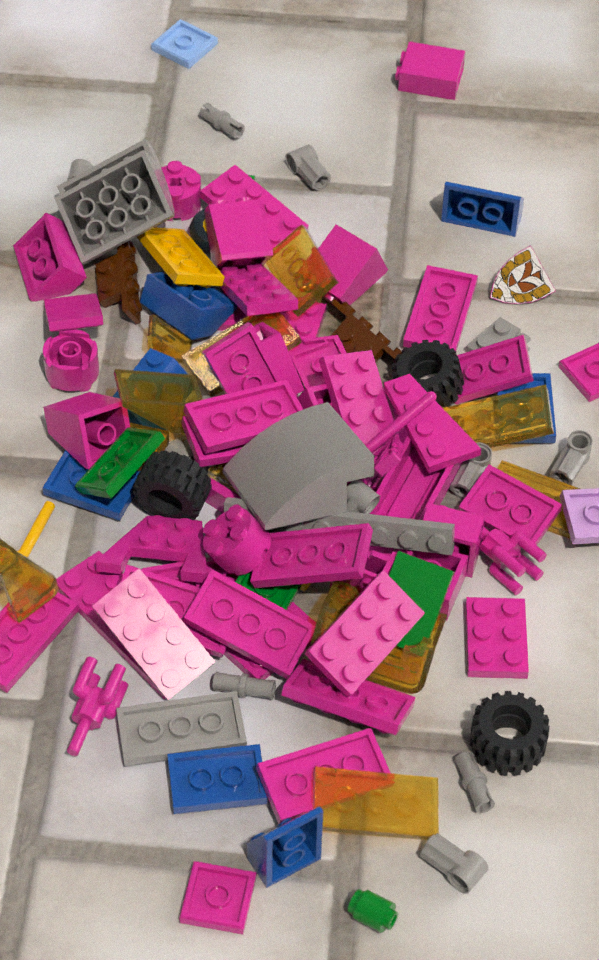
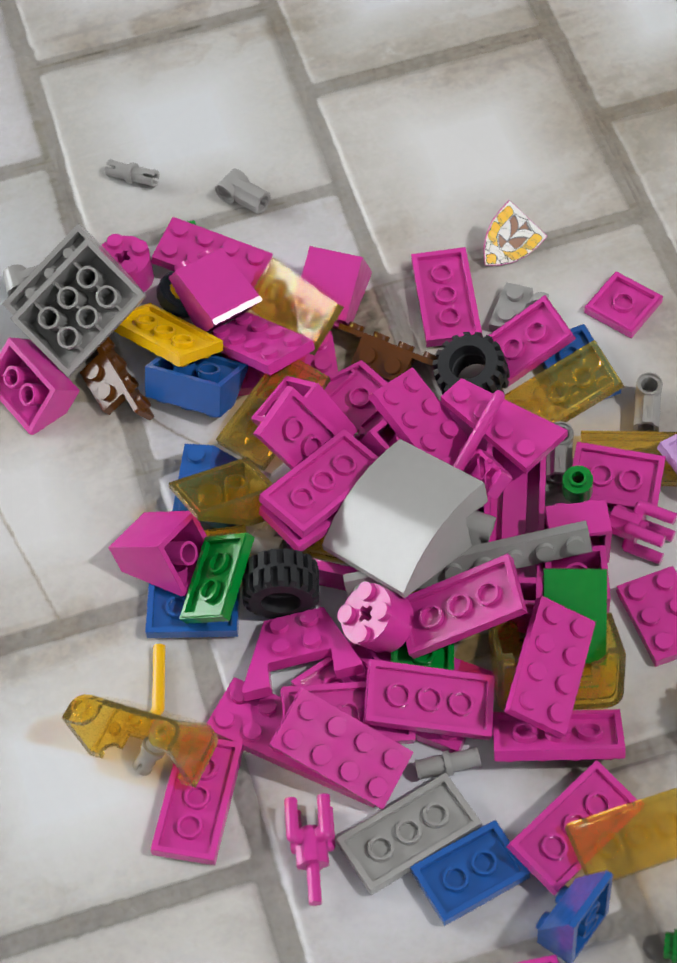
camera: 15 degrees left, 5 degrees up
(71, 361) = (108, 485): dark pink brick -> none
(73, 312) = (86, 433): dark pink tile -> none
(167, 339) = (193, 428): clear yellow slope -> none
(184, 44) = (52, 103): light blue tile -> none
(430, 70) = (313, 48): dark pink brick -> none
(468, 496) = (577, 484): none -> green brick
(481, 209) = (436, 176): blue slope -> none

